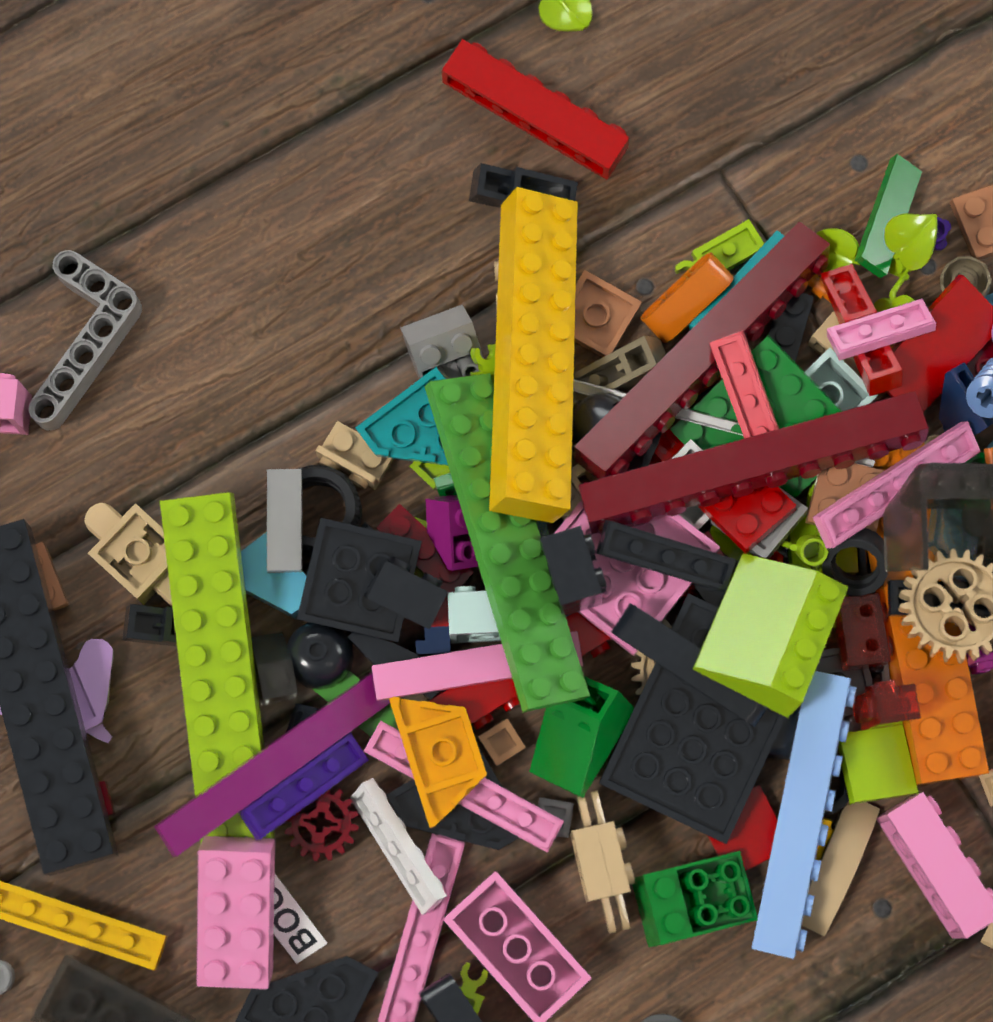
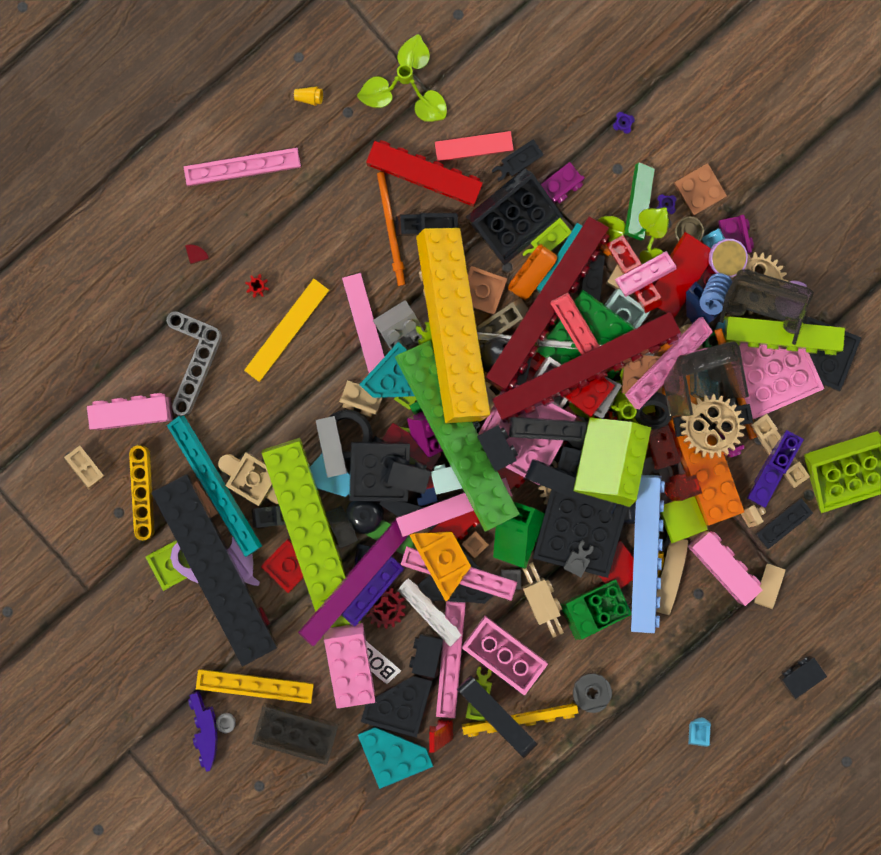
camera: 15 degrees left, 10 degrees up
(71, 555) = (214, 485): none -> teal plate
(128, 169) = (196, 254): none -> dark red tile
(160, 719) = (284, 566): none -> red tile
(220, 246) = (255, 281): none -> red gear
(236, 46) = (242, 167): none -> bright pink tile
(252, 320) = (286, 330): none -> yellow tile
(377, 922) = (426, 655): none -> black brick
(385, 325) = (363, 320): none -> bright pink tile
(461, 247) = (398, 266): none -> orange bar
(626, 82) = (474, 146): none -> coral tile
(672, 203) = (514, 216): none -> black slope
(677, 804) = (578, 561): none -> dark grey plate
(696, 117) = (519, 160): none -> black plate
(762, 167) = (562, 183): none -> magenta bracket
(885, 81) = (628, 121): none -> dark purple plate

